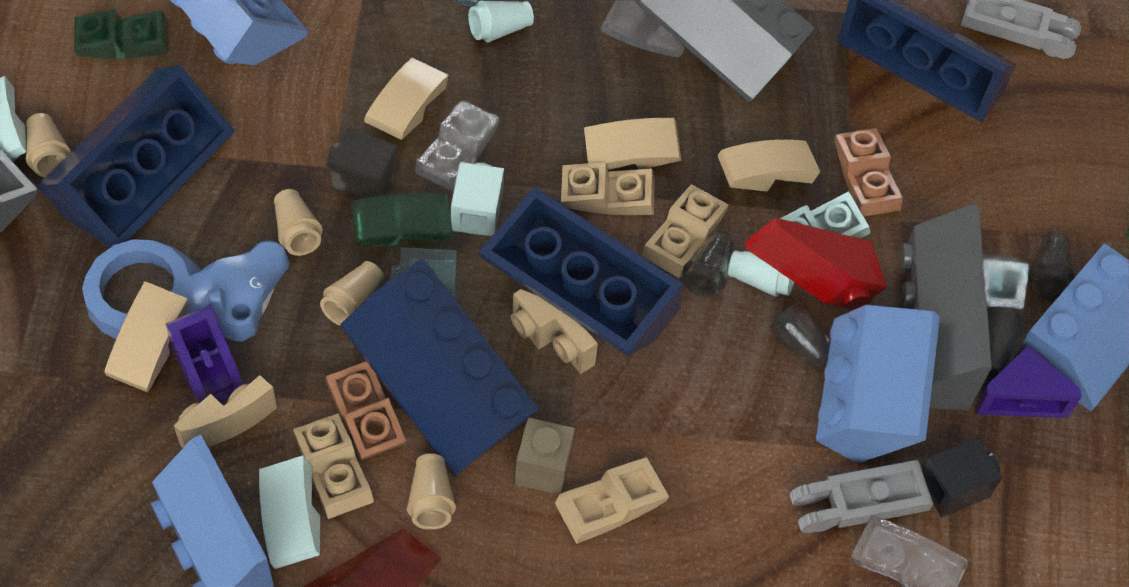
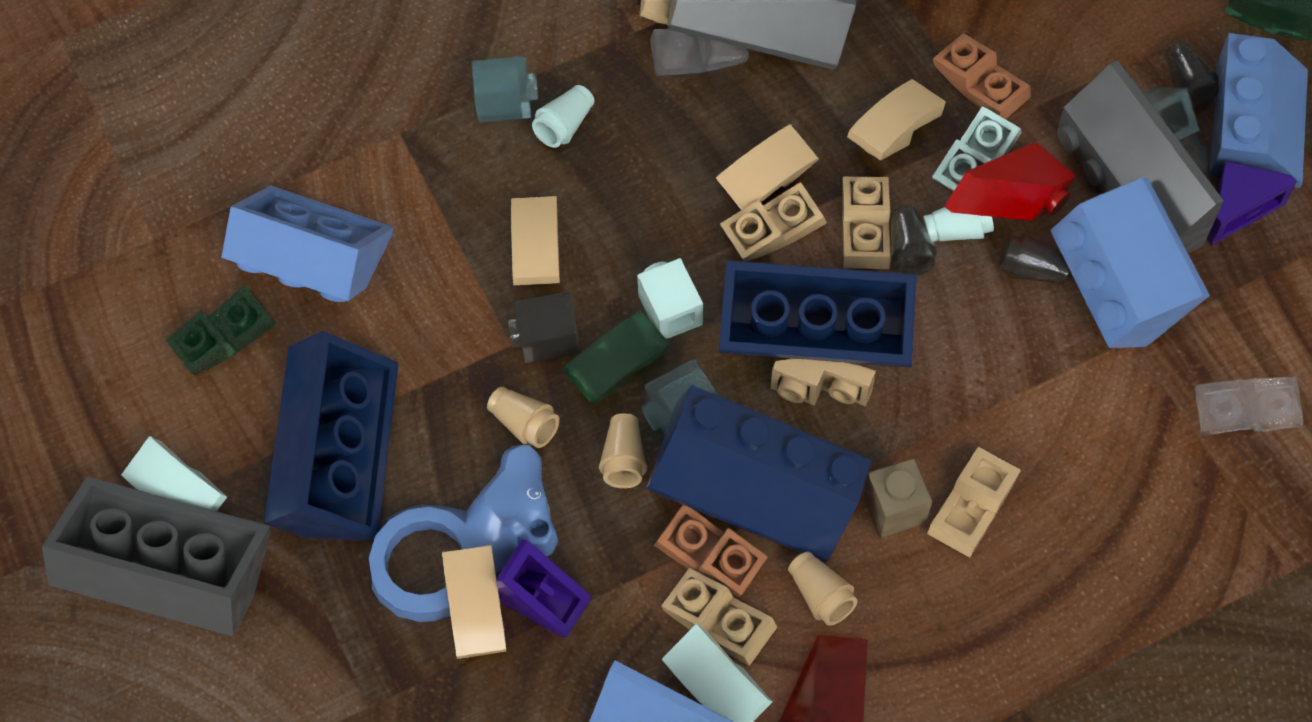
camera: 25 degrees left, 5 degrees up
(44, 144) = (239, 480): tan cone -> none
(219, 423) = (592, 639): tan slope -> none
(460, 139) = (611, 259): clear slope -> none
(858, 495) = (1177, 371): light grey hinge -> none
(961, 476) = (1241, 309): black brick -> none

